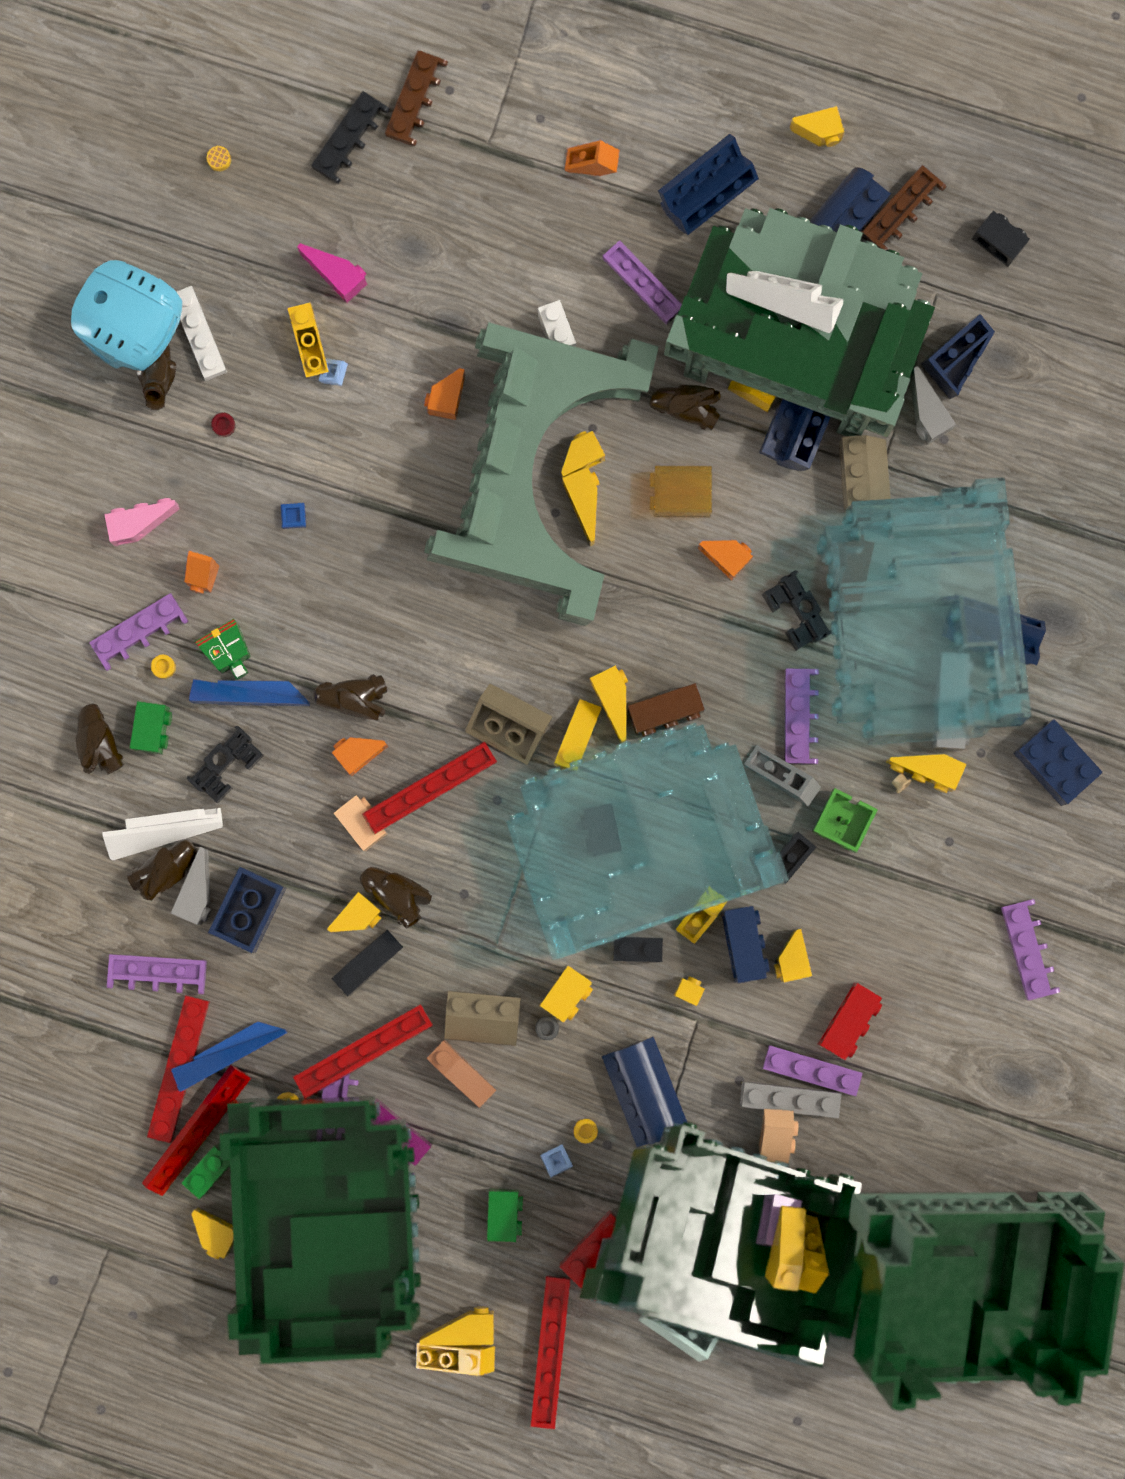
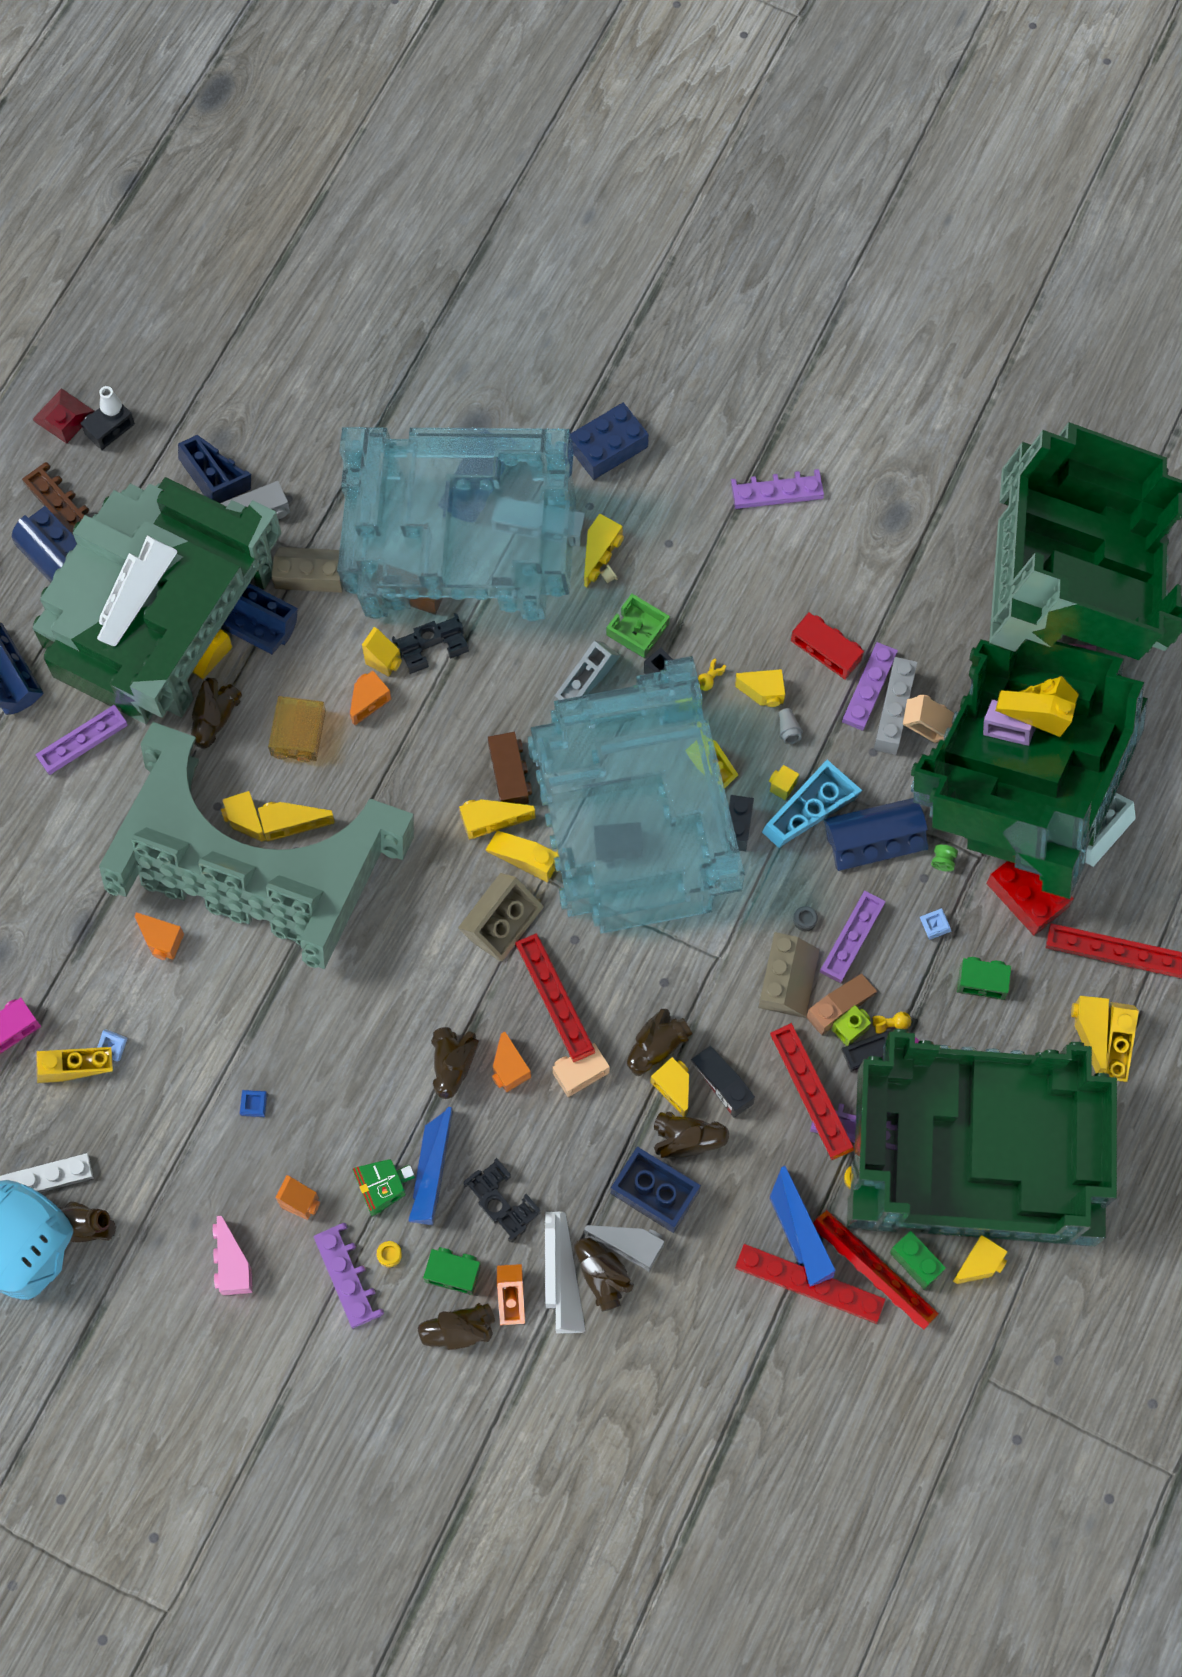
camera: 80 degrees left, 15 degrees down
(135, 785) = (510, 1294): none -> orange slope
(156, 970) = (706, 1293): medium lavender hinge -> none
(223, 424) = (144, 1163): dark red tile -> none
(305, 935) = (687, 1135): none -> dark brown animal
(416, 1104) = (857, 1052): none -> black tile
(437, 1086) = (851, 1025): none -> lime brick
(449, 1134) = (900, 1021): none -> yellow arm
(532, 1078) = (852, 937): none -> medium lavender plate
(555, 323) = (106, 822): white brick -> none
(566, 994) = (774, 890): yellow brick -> none
(585, 1130) = (908, 895): yellow tile -> none
(623, 1163) = (944, 858): none -> bright green wheel
(670, 1024) = (816, 800): none -> medium azure wedge
(745, 944) = (746, 724): dark blue brick -> none
(753, 990) = (789, 727): none -> light grey cone
(774, 562) = (381, 652): none -> yellow slope
(794, 899) = (706, 679): none -> yellow arm
(798, 715) = (531, 655): medium lavender hinge -> none
(1006, 192) = (63, 415): none -> dark red slope
(1018, 235) = (109, 401): none -> white cone

